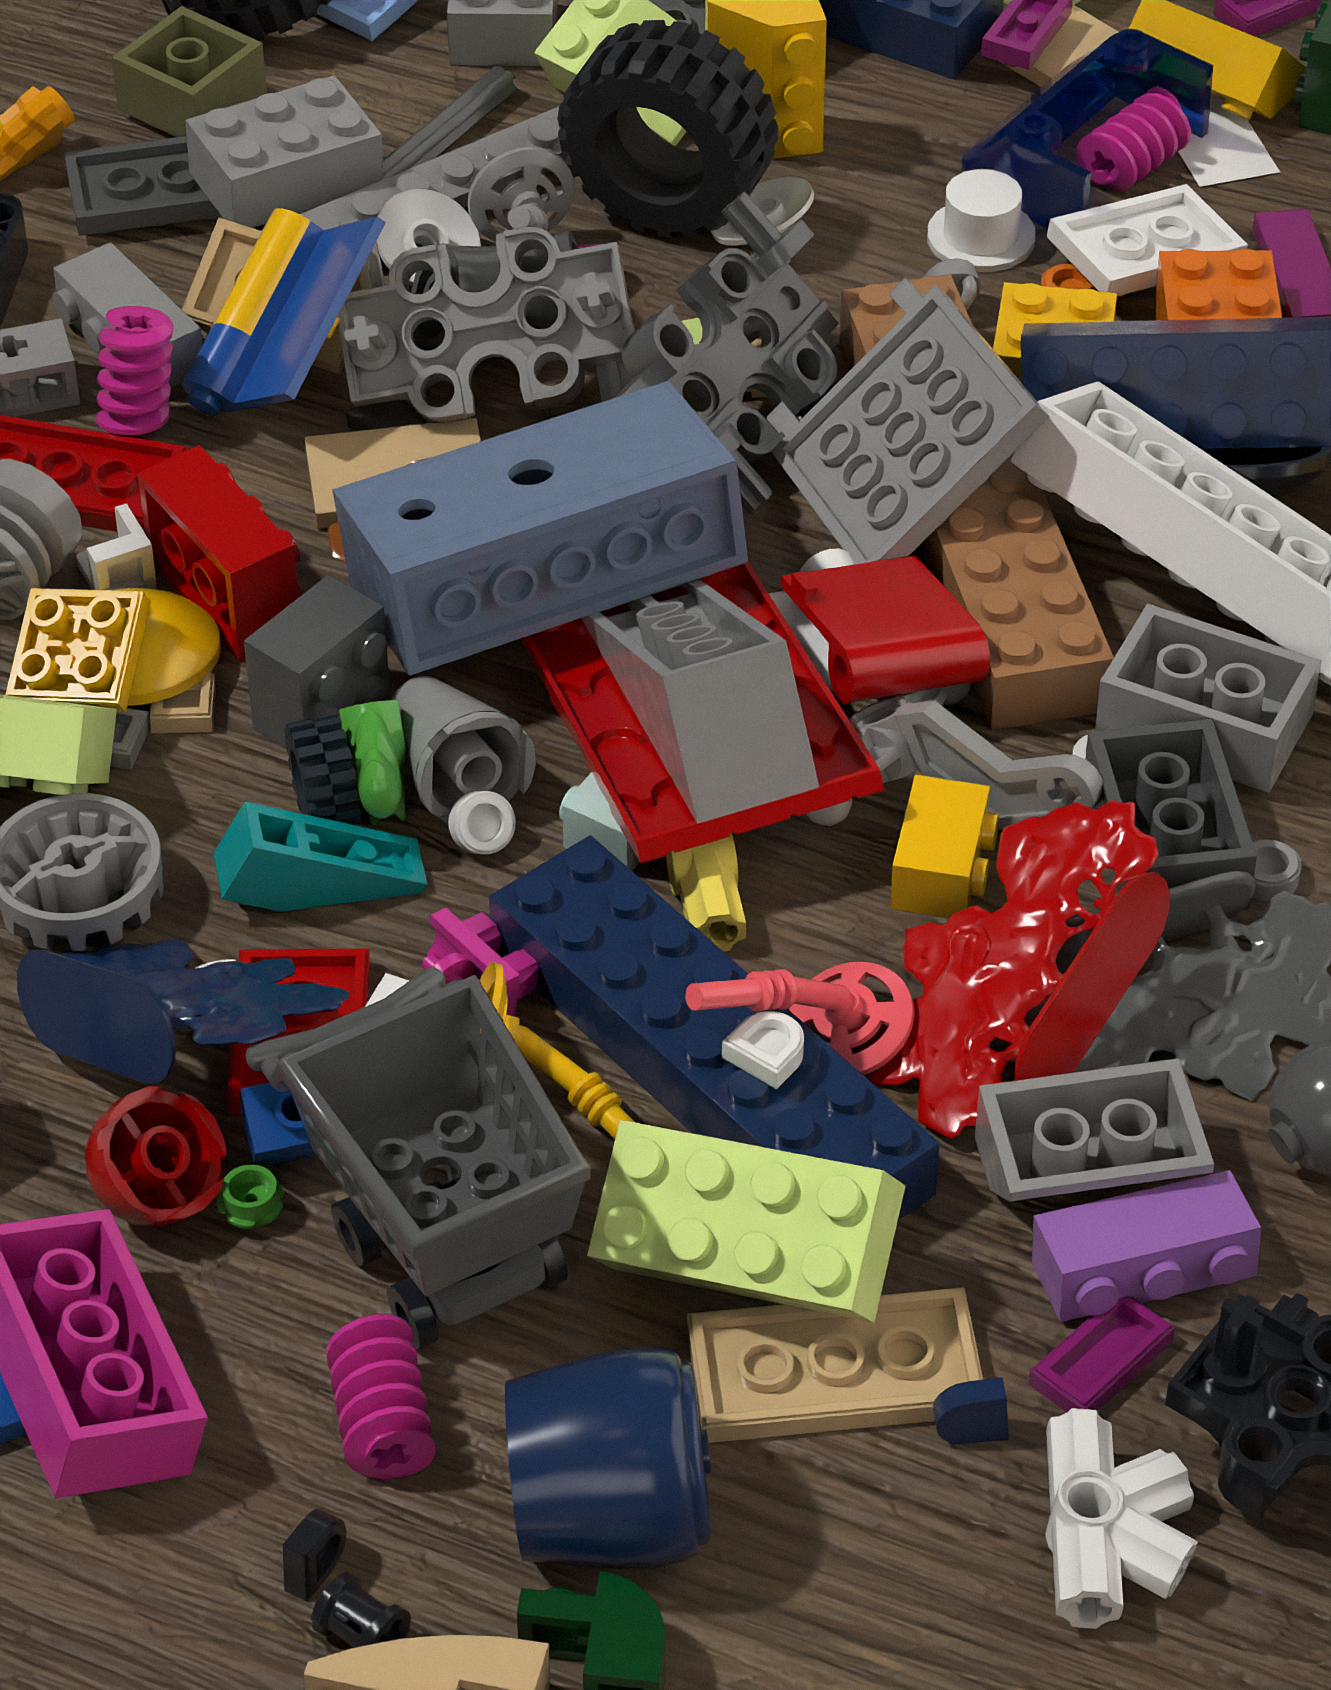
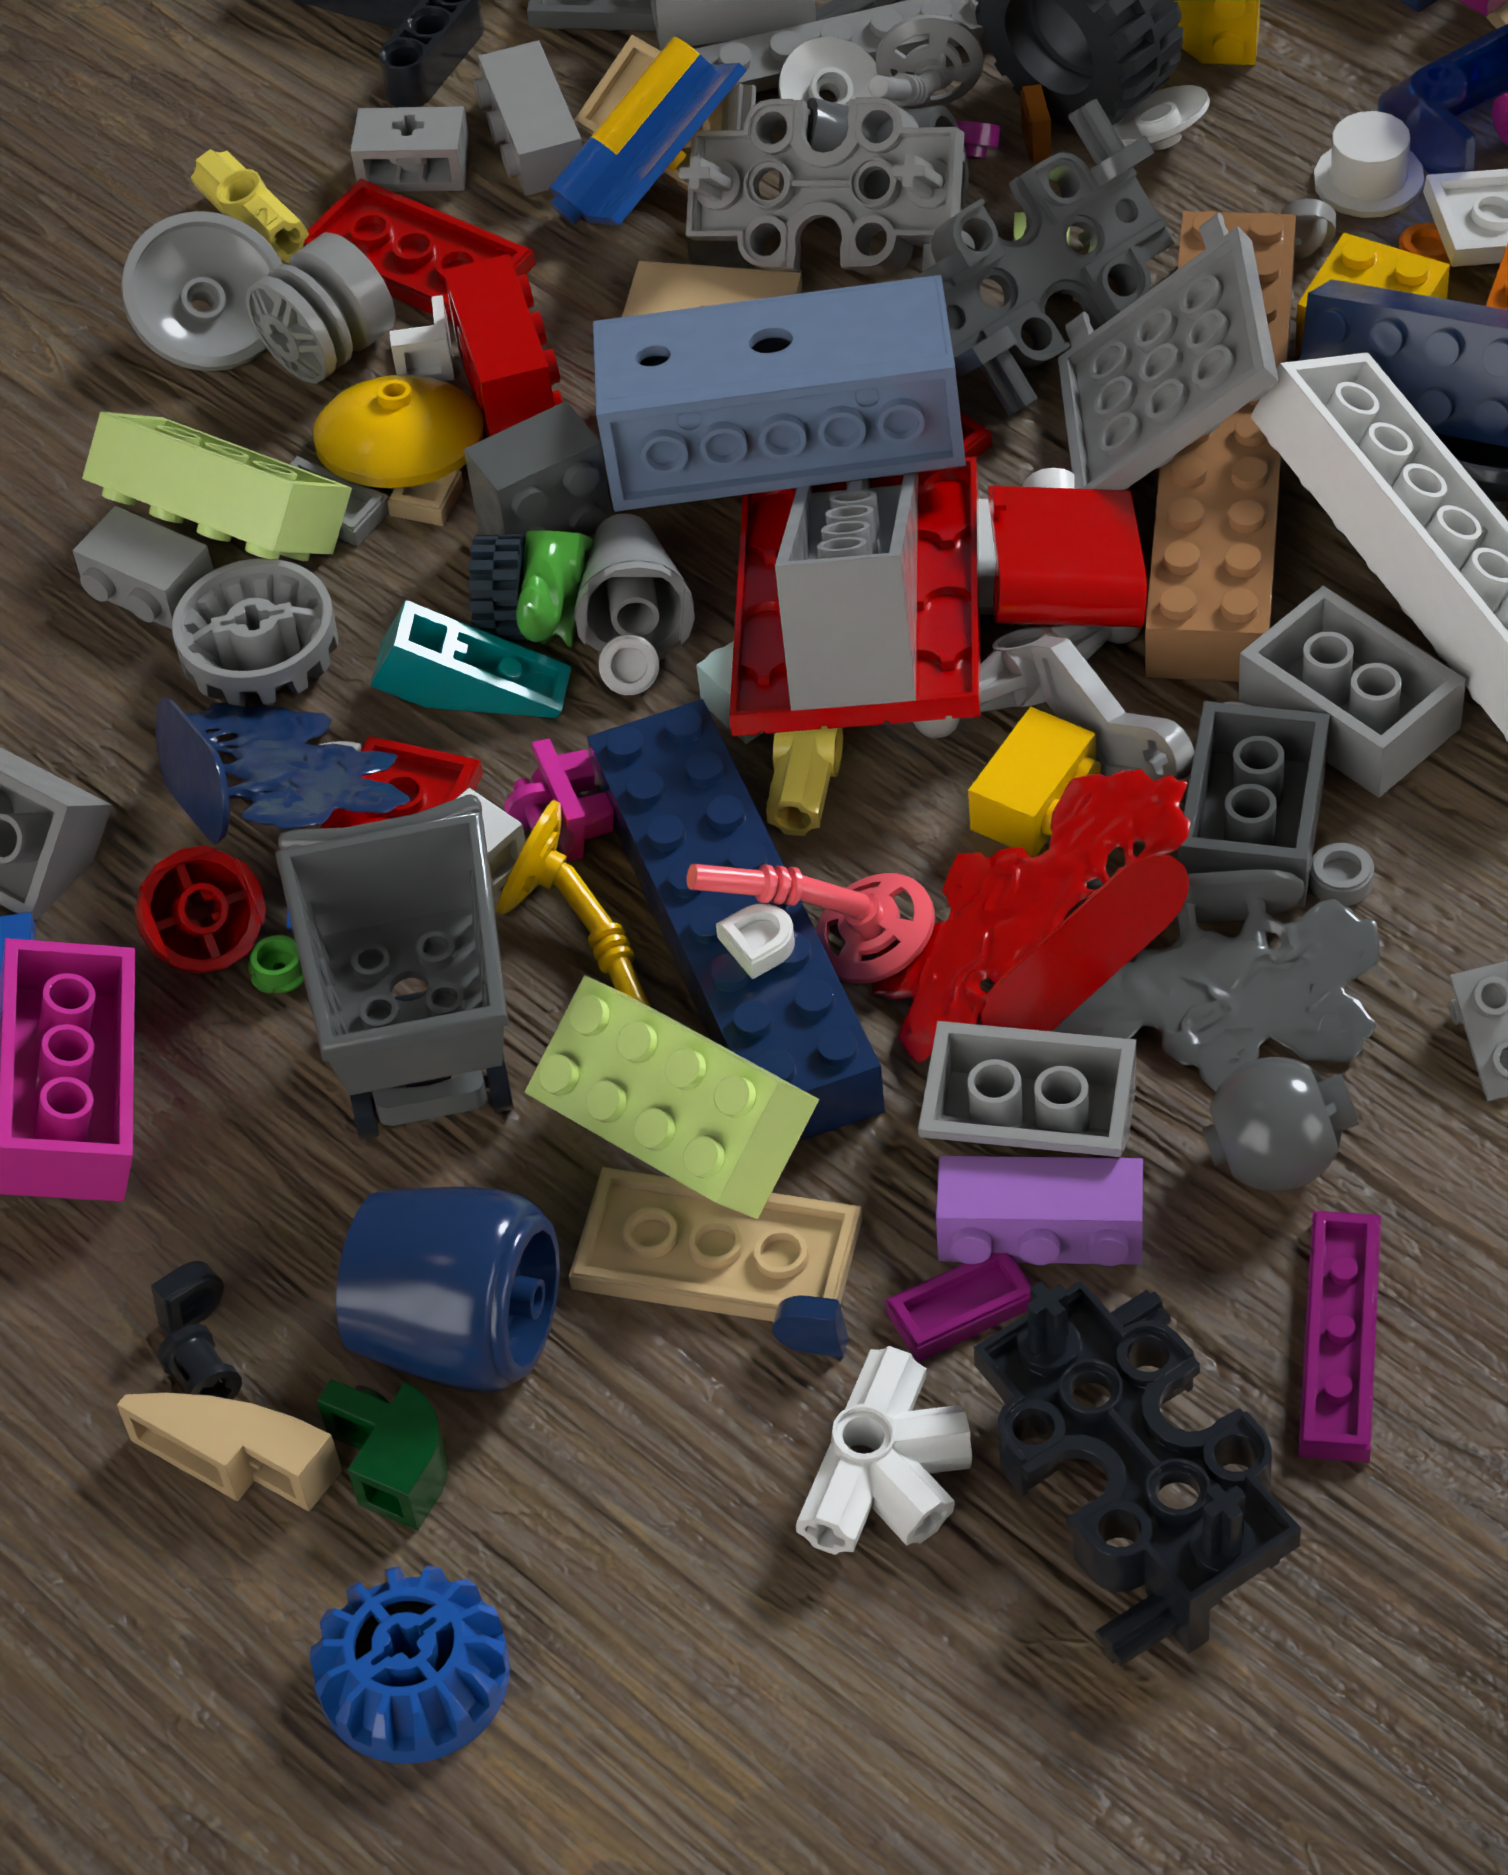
camera: 25 degrees right, 5 degrees up
(79, 646) = (340, 424): yellow tile -> none
(135, 370) = (501, 169): dark pink piece -> none
(380, 1398) = (299, 1174): dark pink piece -> none
(645, 238) = (1035, 123): none -> reddish brown tile

